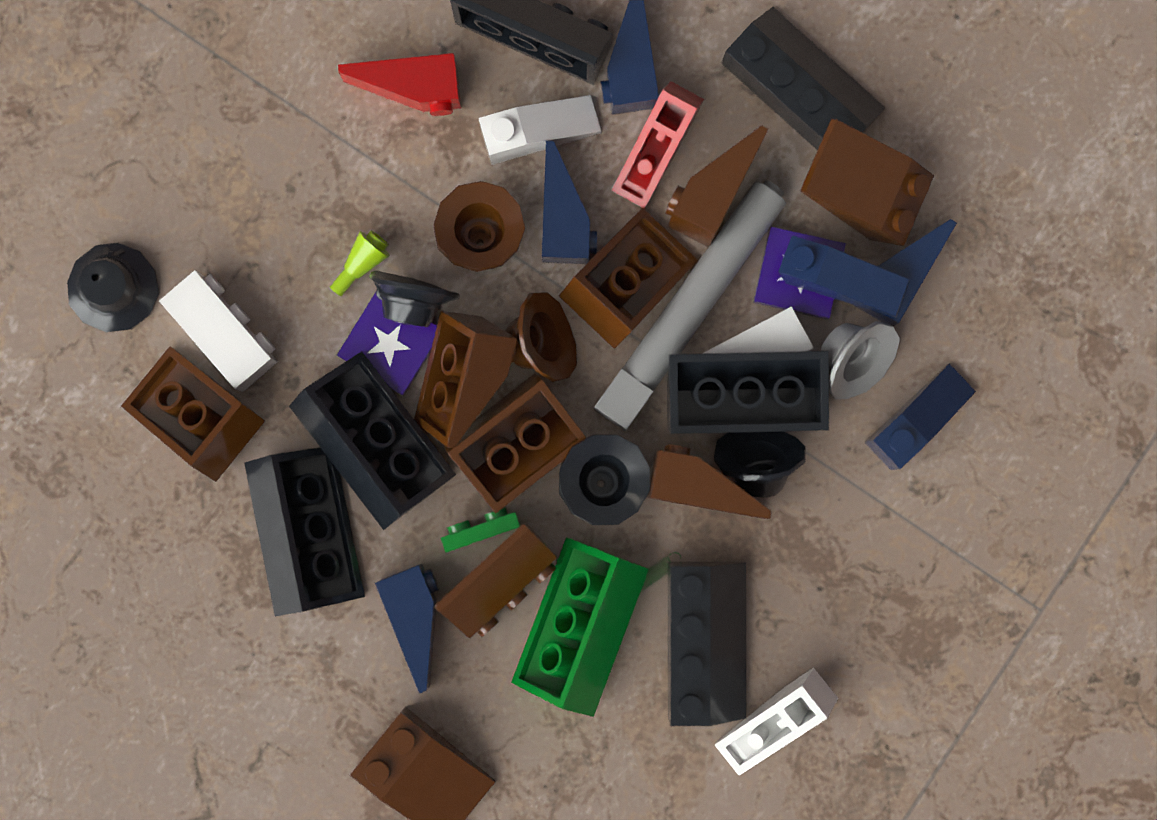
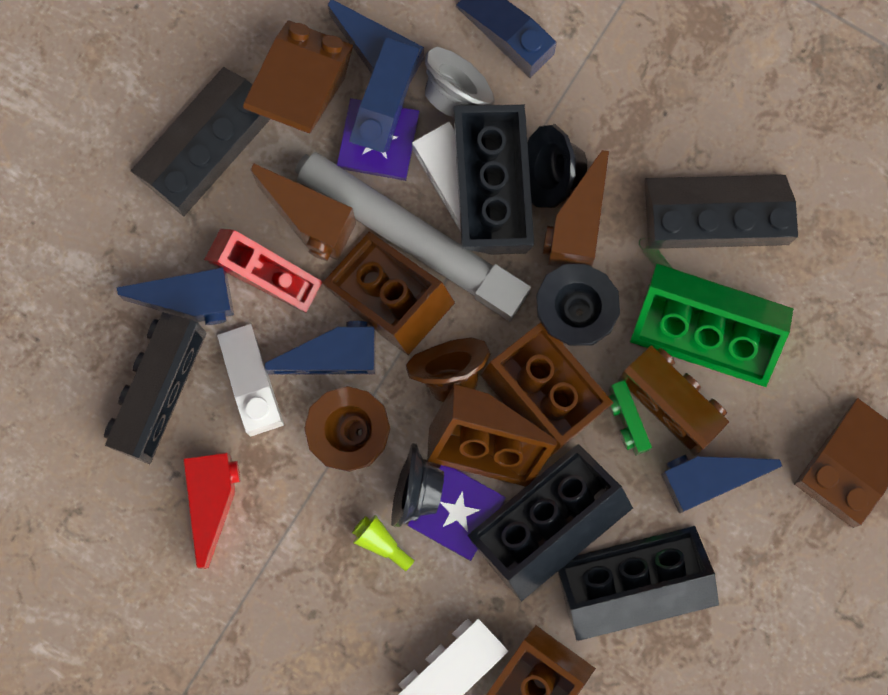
camera: 85 degrees left, 5 degrees down
(778, 721) = (787, 144): white slope -> none

